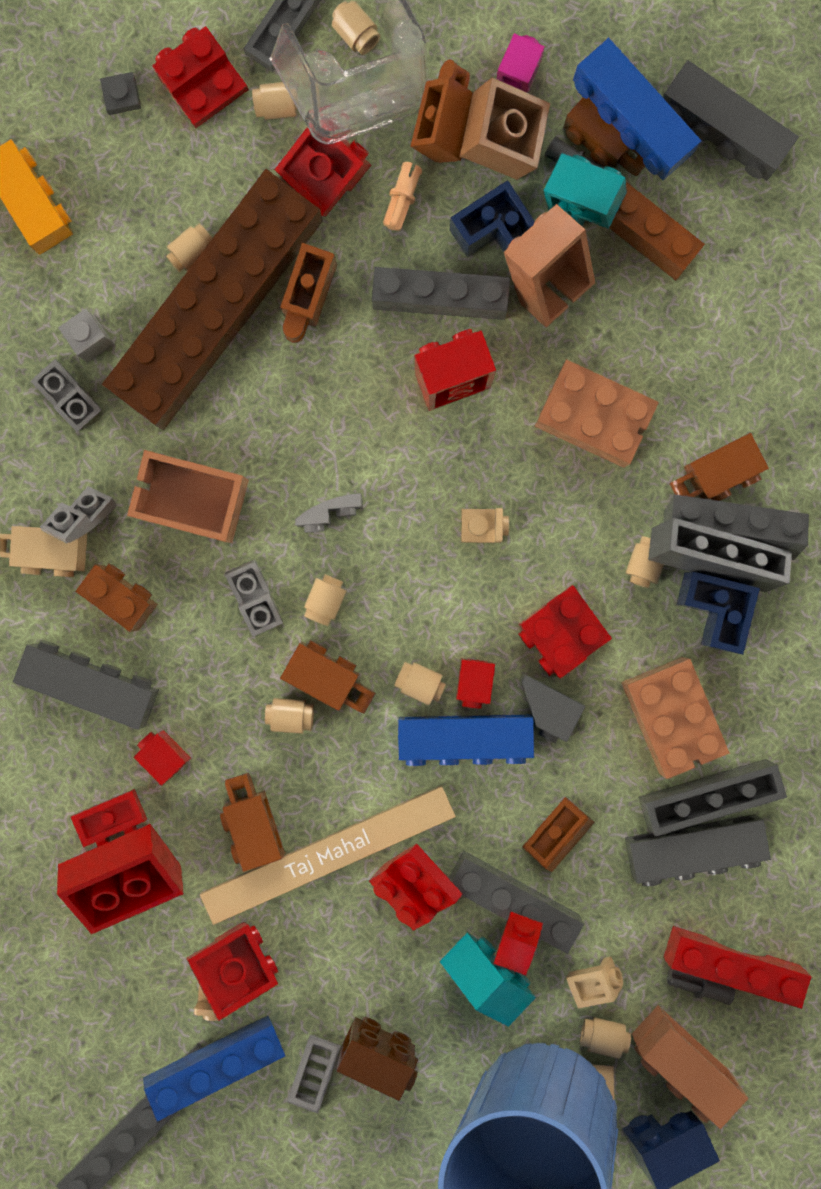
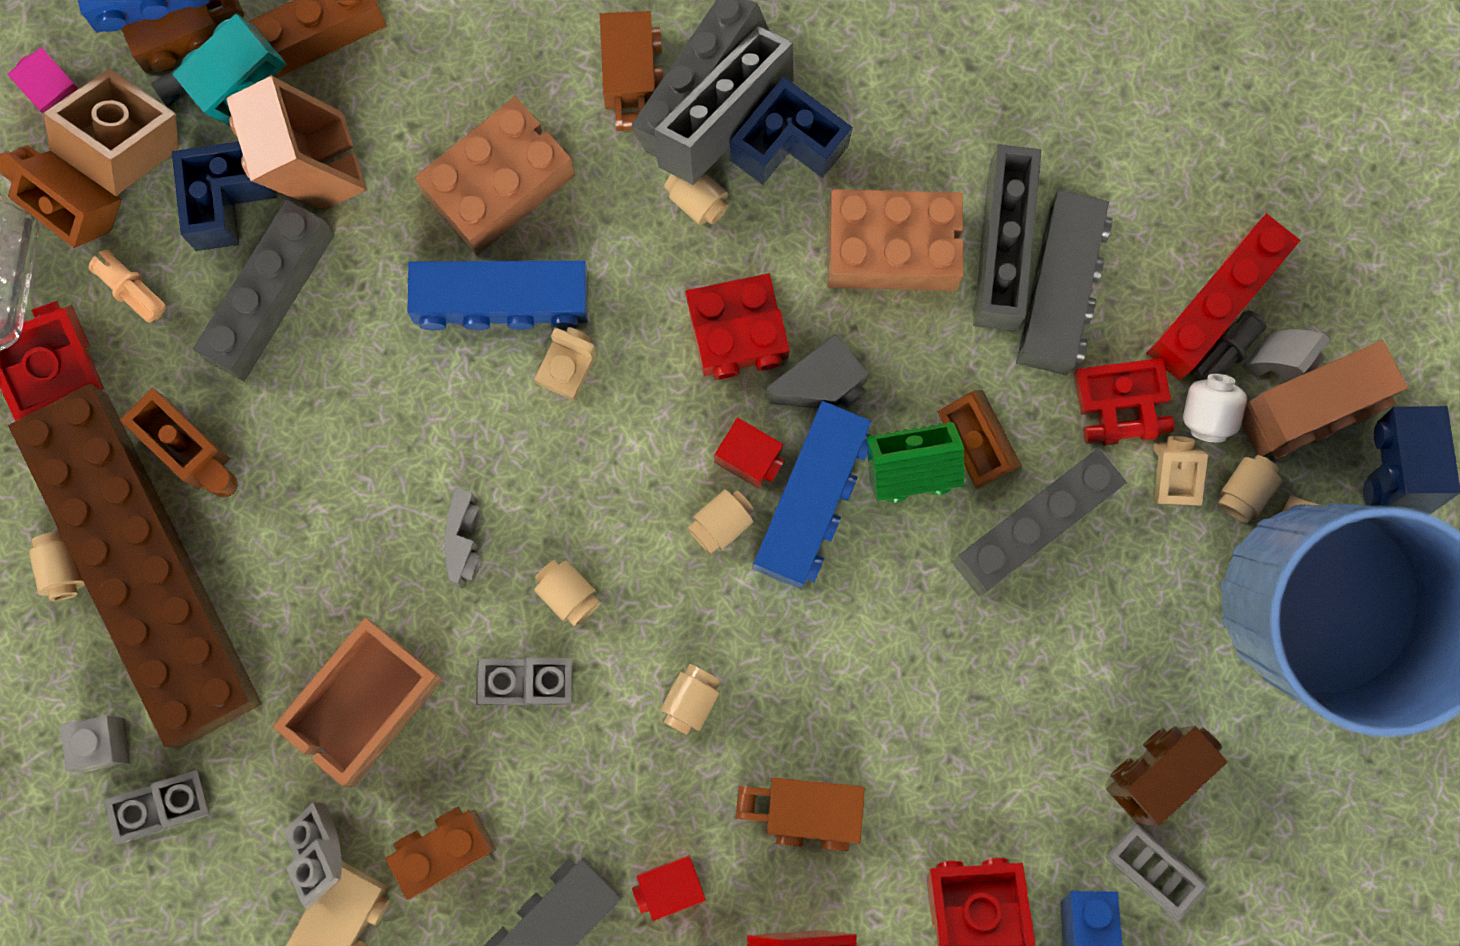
camera: 70 degrees left, 10 degrees down
(325, 677) = (663, 632): dark orange brick -> none
(327, 855) = (886, 736): tan tile -> none
(414, 887) = (969, 635): red plate -> none
(454, 369) = (361, 306): red brick -> none
(487, 986) = (1127, 592): teal brick -> none
(512, 456) = (497, 293): none -> blue brick
(518, 943) = (1088, 532): red brick -> none
(519, 800) = (916, 462): none -> green brick
(638, 919) = (1124, 387): none -> red plate
(651, 992) = (1214, 408): none -> white head
(712, 1030) = (1288, 353): none -> light grey slope

